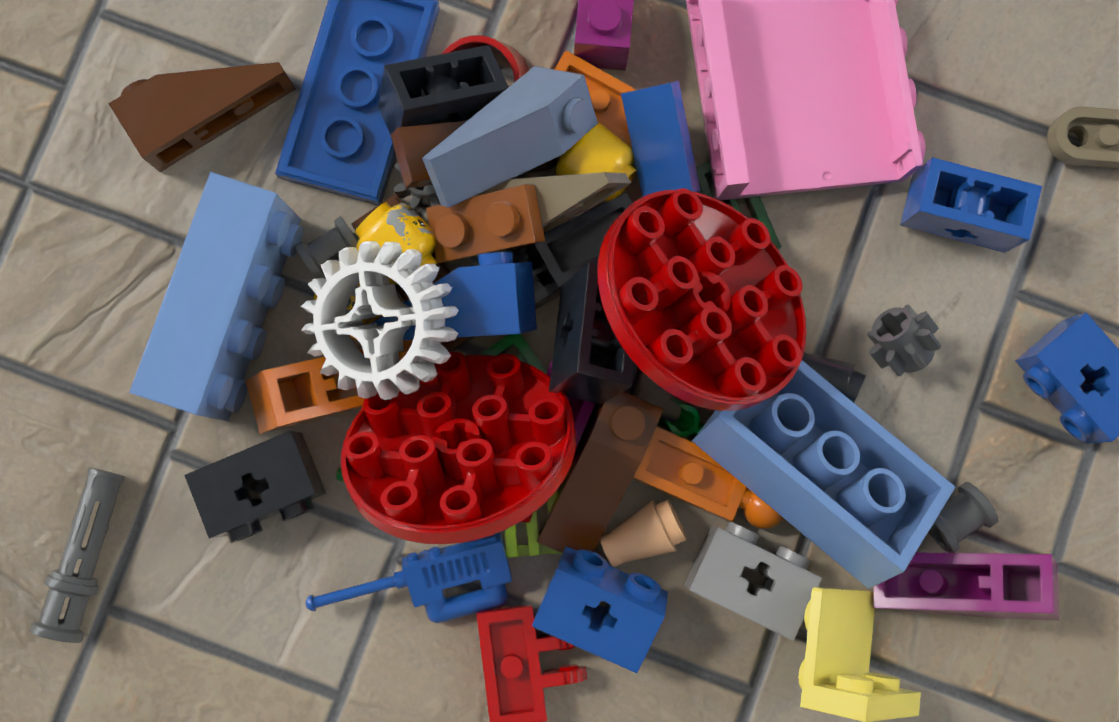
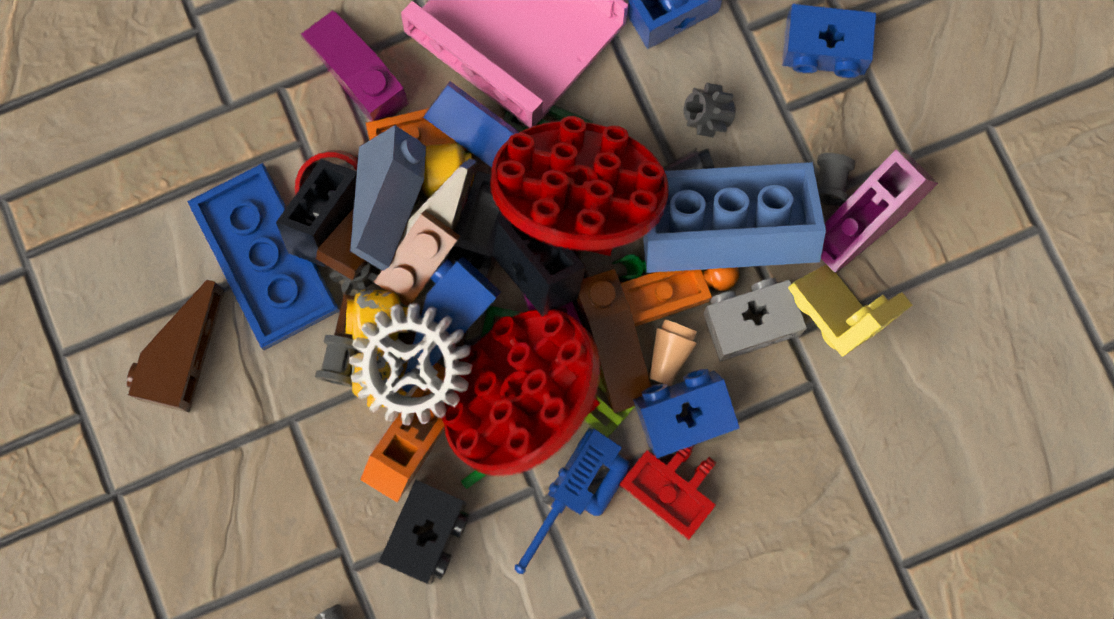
camera: 40 degrees left, 5 degrees down
(219, 300) = (302, 444): medium blue brick -> none

